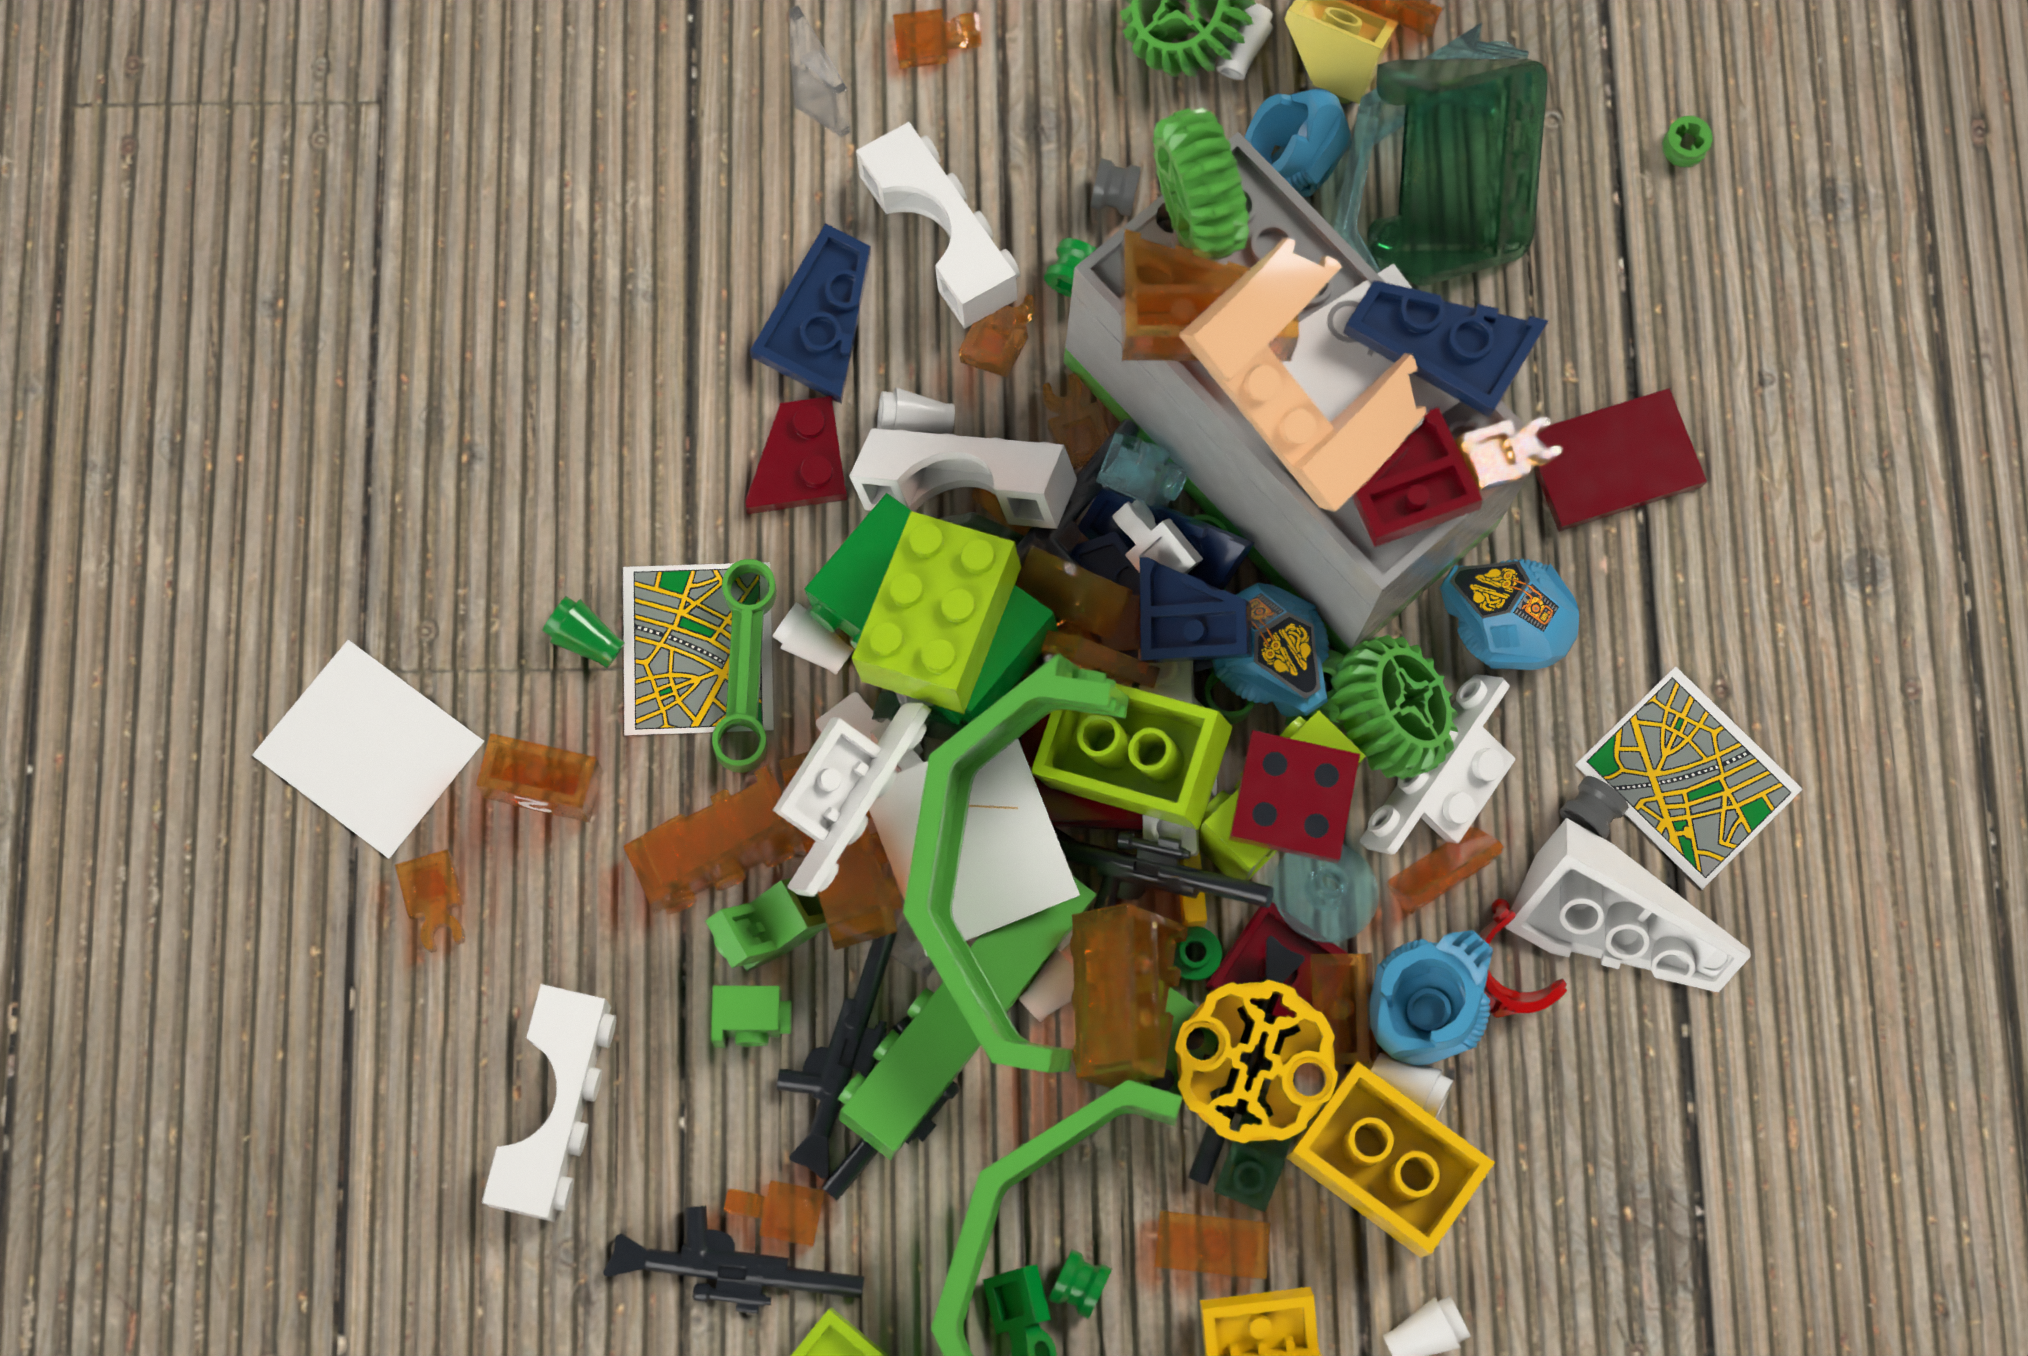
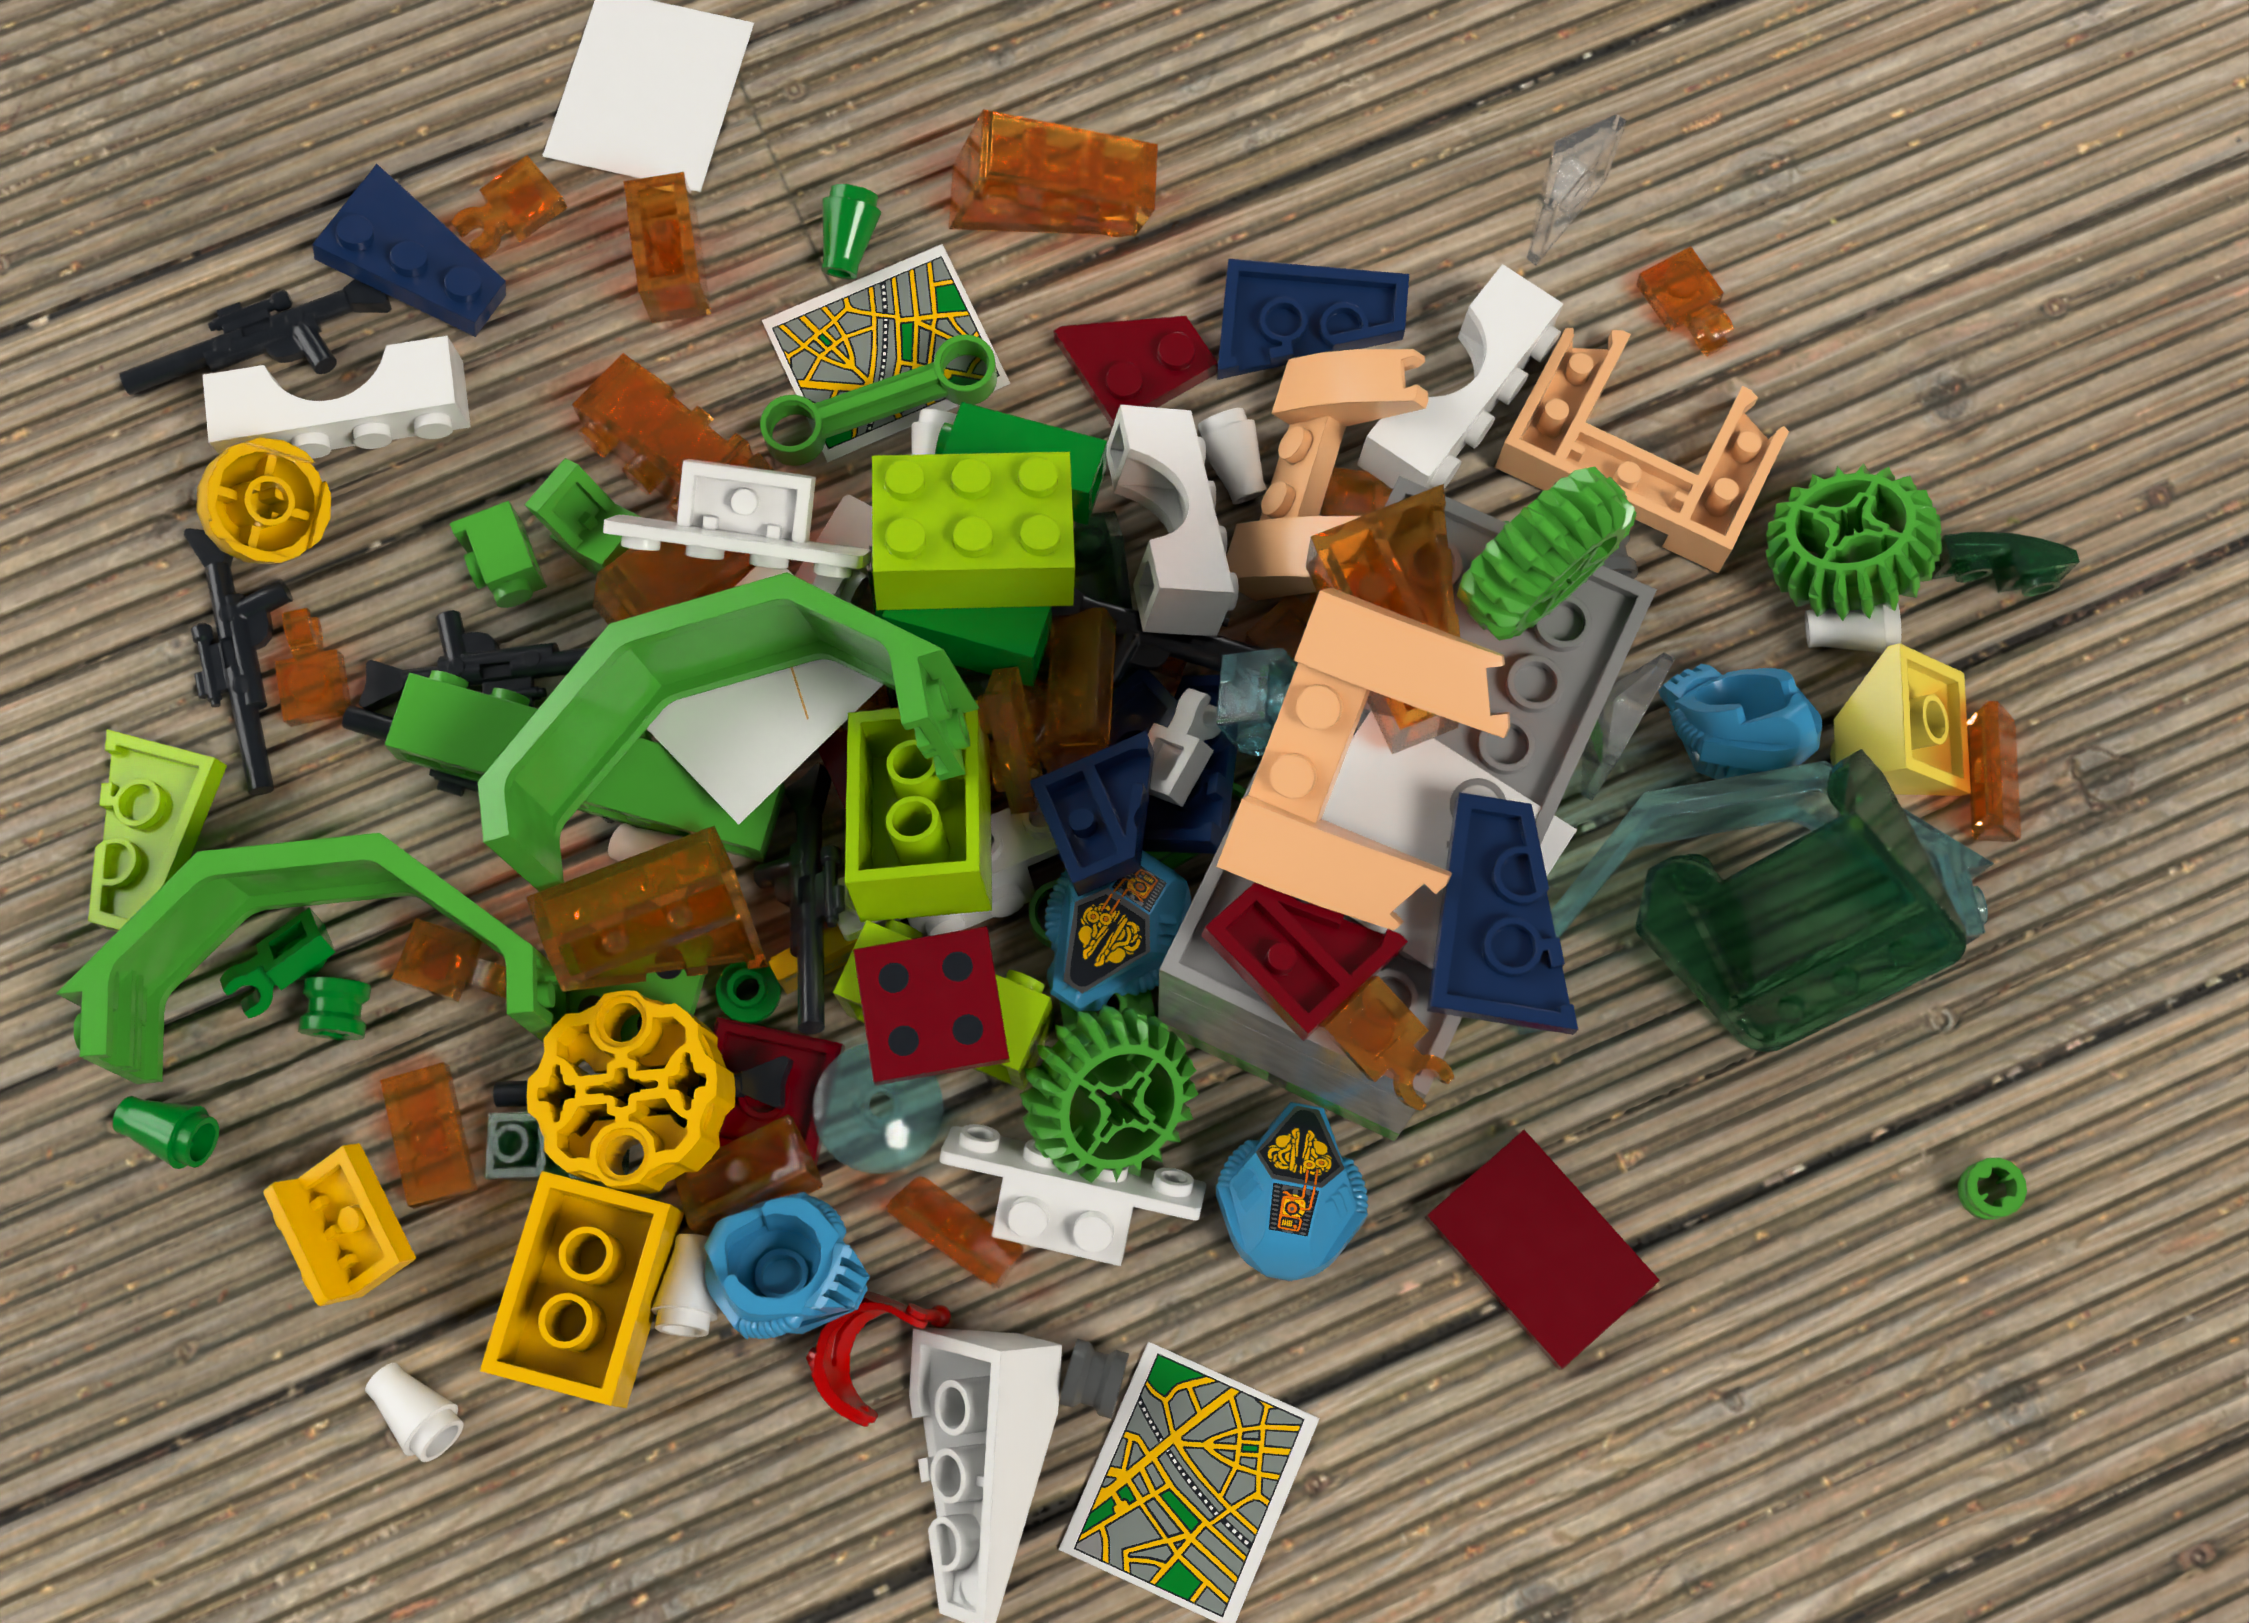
camera: 75 degrees right, 0 degrees up
(438, 997) = (409, 254): none -> dark blue wing
(443, 1158) = (255, 332): none -> black piece
(620, 457) = (1051, 179): none -> clear orange wedge
(622, 1190) = (263, 501): none -> yellow cylinder
(905, 334) = (1318, 401): none -> light nougat wedge
(1075, 1183) = (445, 962): none -> clear orange plate
(1107, 105) = (1694, 510): none -> light nougat wedge

